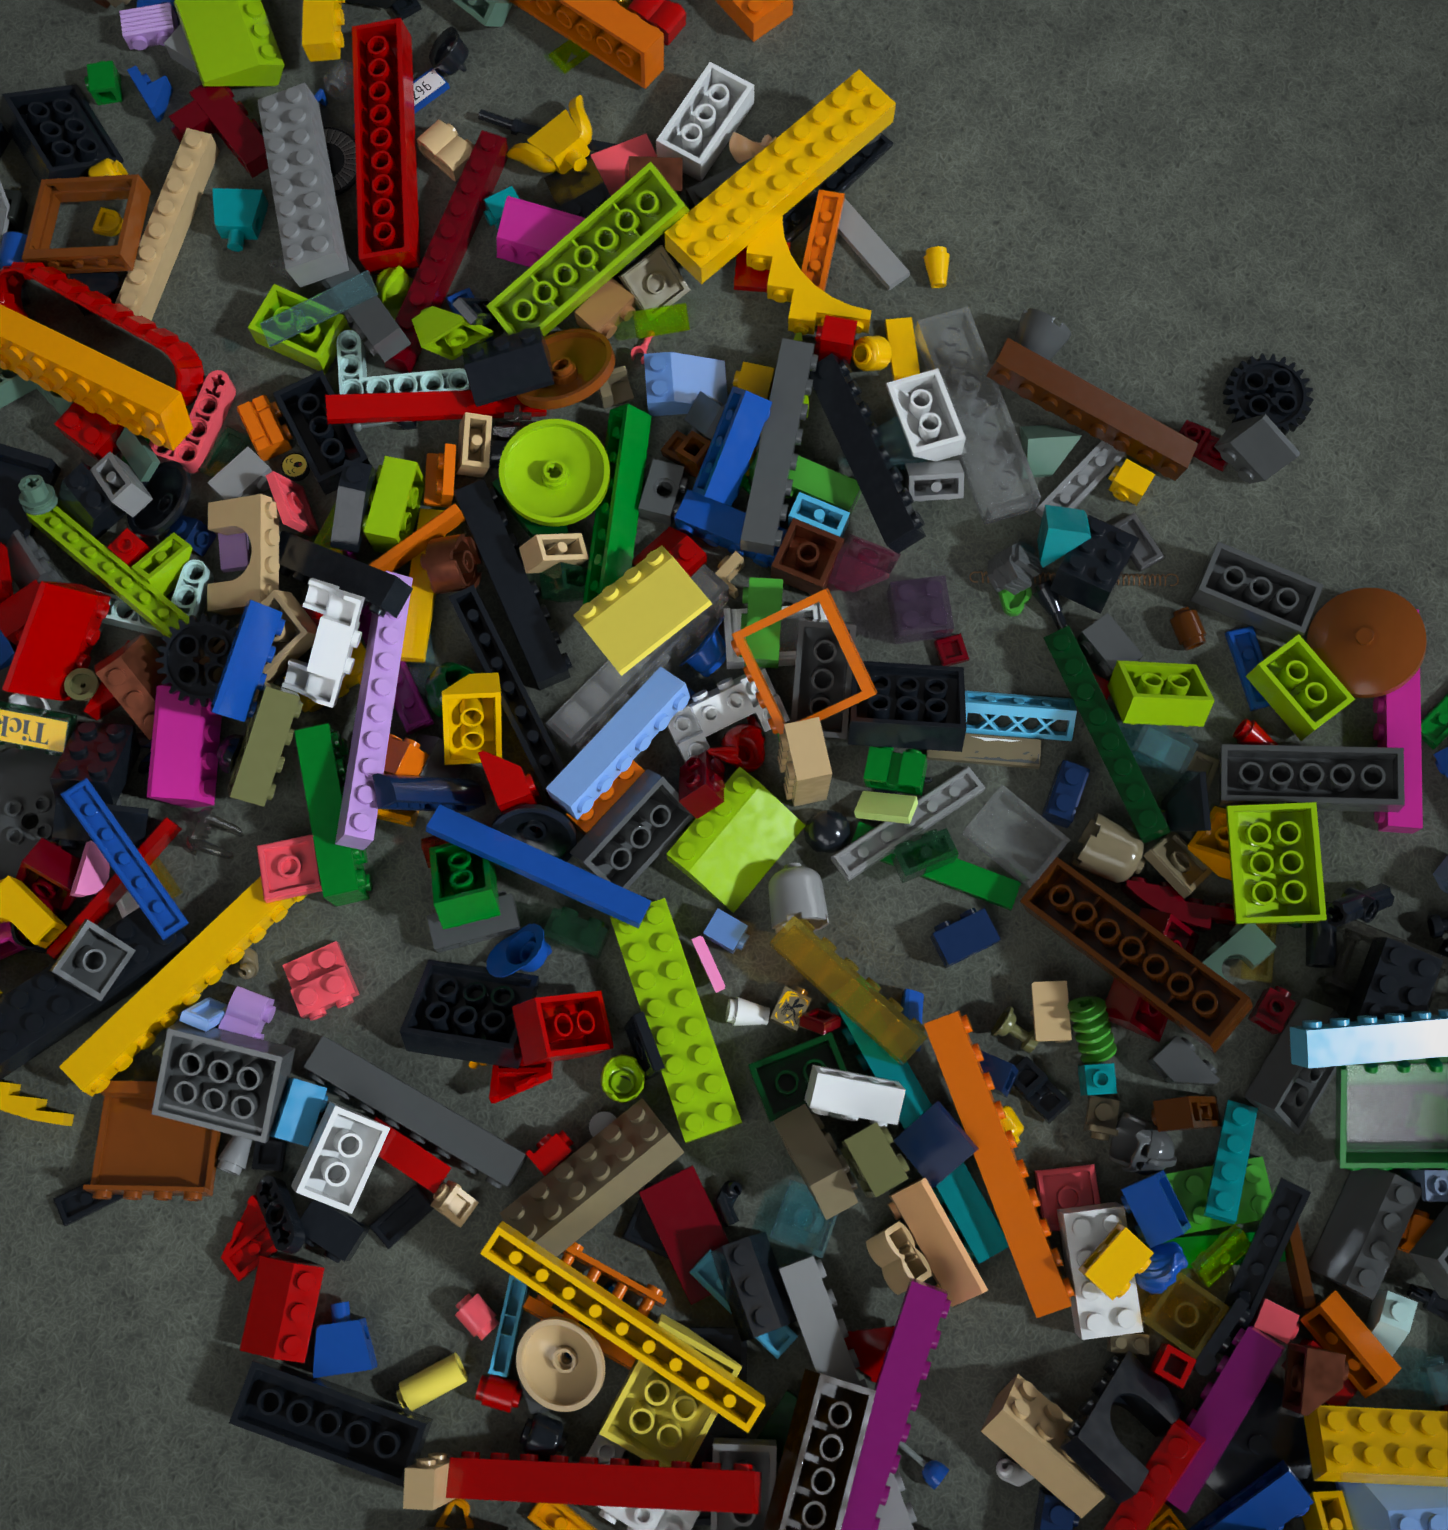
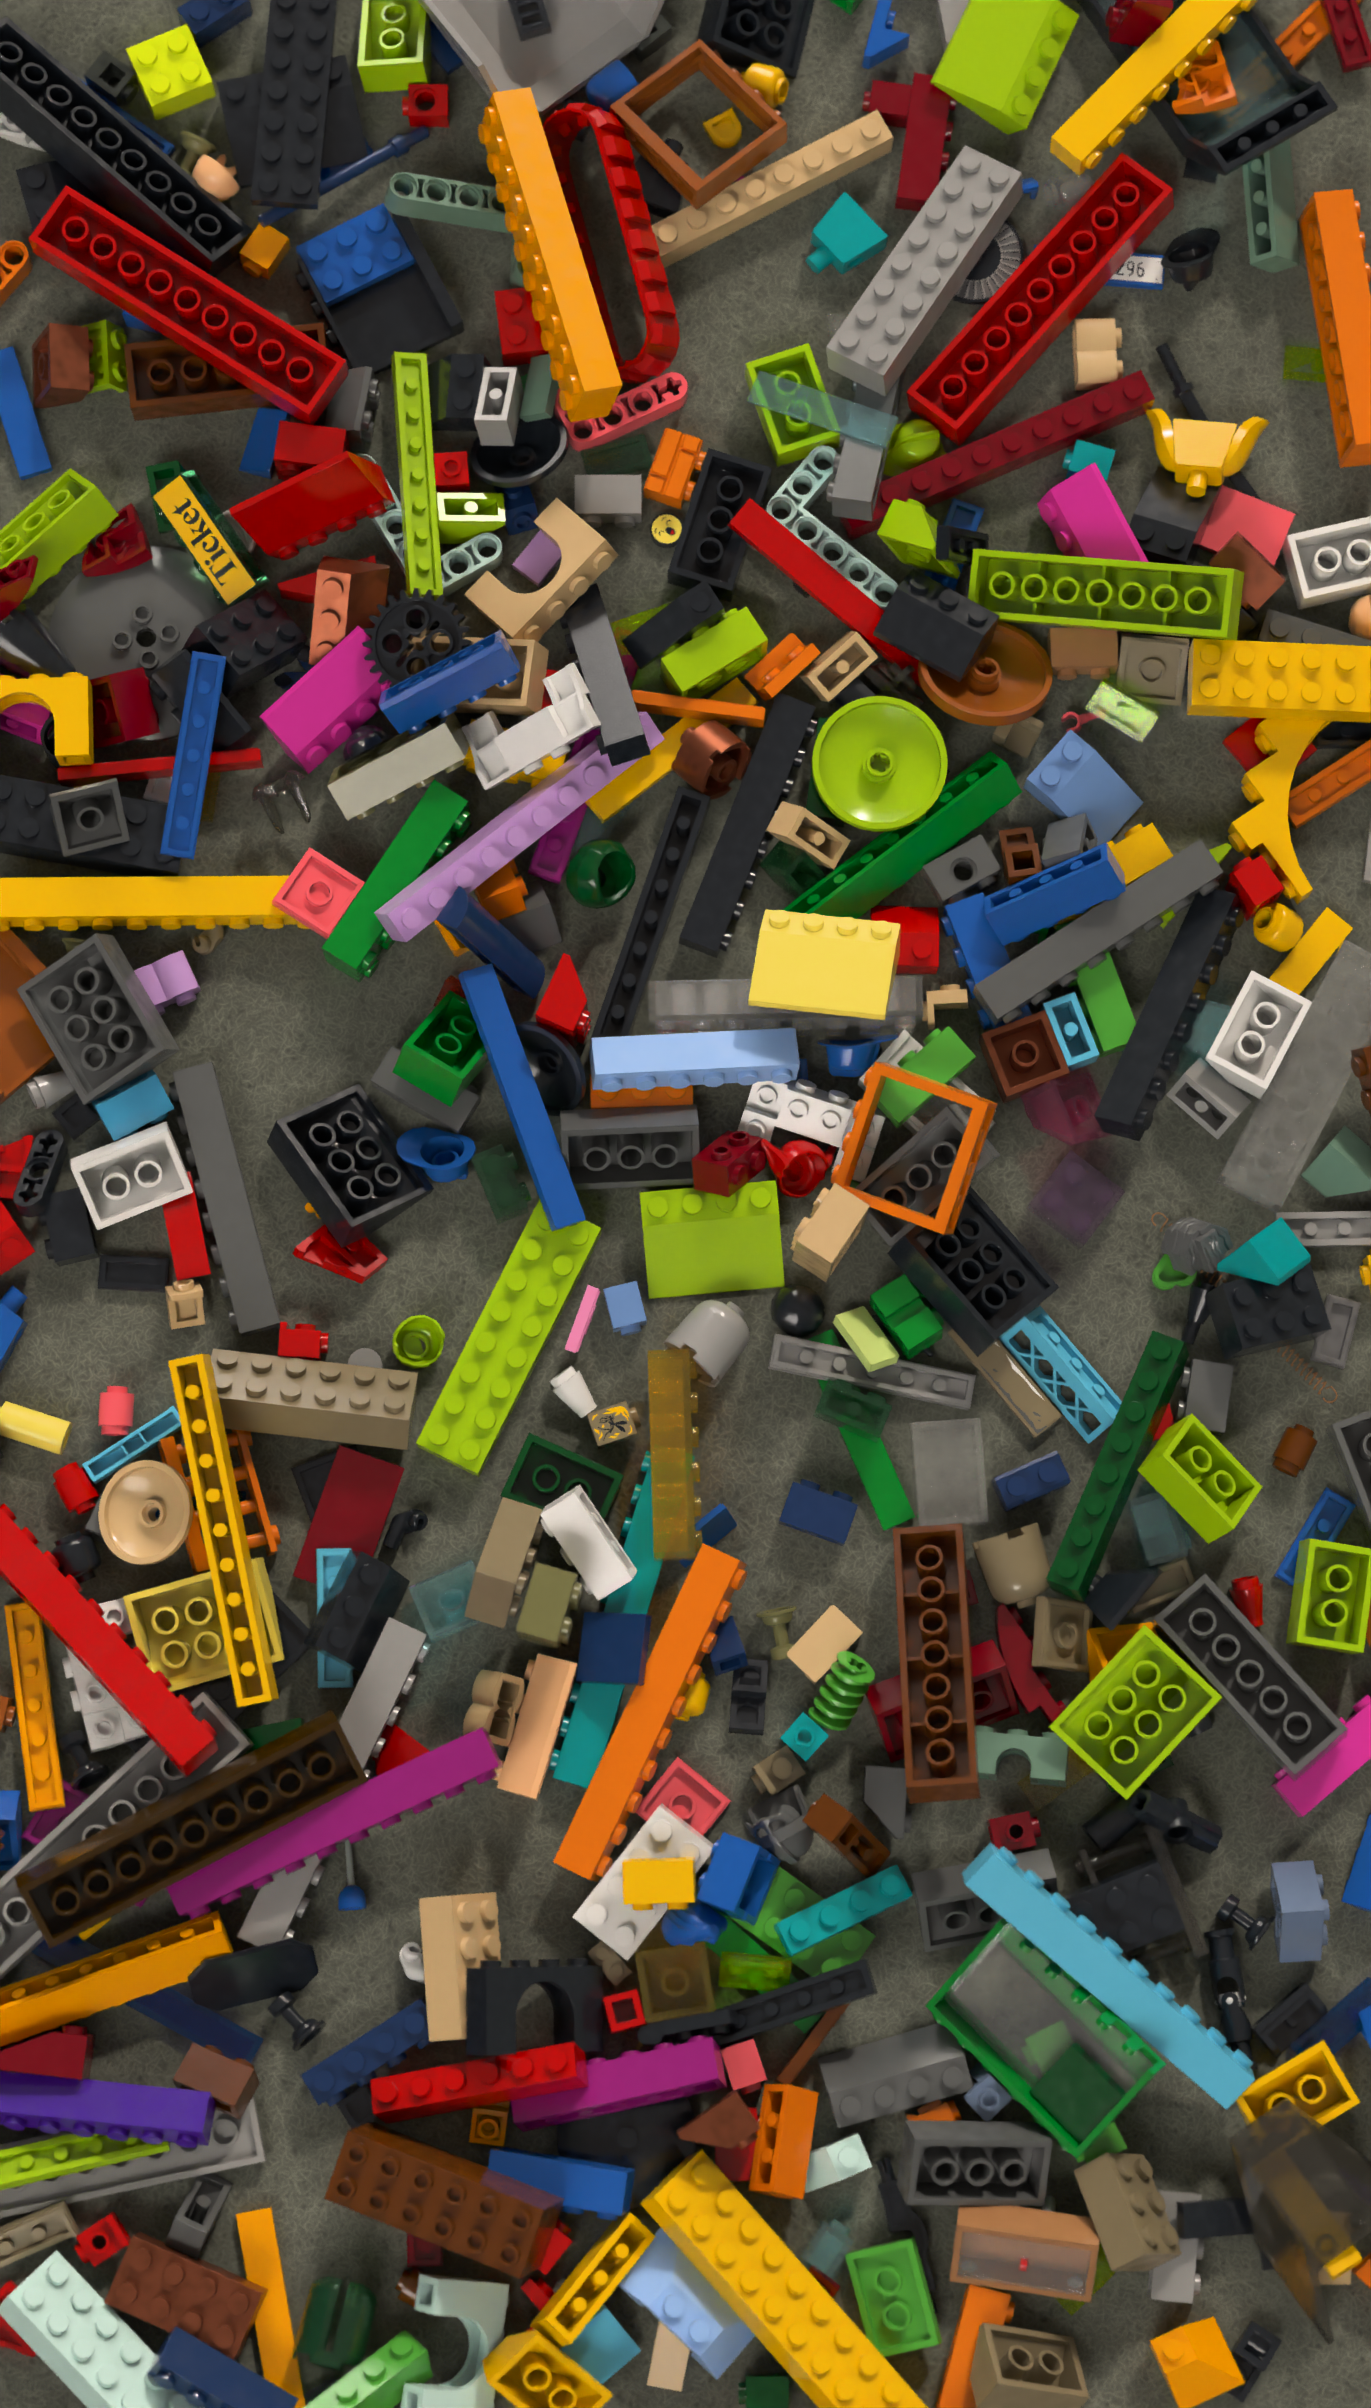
camera: 40 degrees right, 5 degrees up
(36, 495) = (418, 344): sand green piece -> none
(81, 684) = (298, 559): olive piece -> none
(91, 873) = (156, 736): bright pink tile -> none
(204, 1014) = (135, 948): light blue tile -> none
(292, 504) = (628, 567): coral tile -> none
(320, 981) = (253, 1013): coral plate -> none
(472, 718) = (591, 917): yellow slope -> none
(562, 1027) = (410, 1250): red brick -> none
(644, 1045) = (461, 1332): black tile -> none
(820, 1021) = (625, 1458): dark red tile -> none
(951, 650) = (1068, 1262): dark red tile -> none

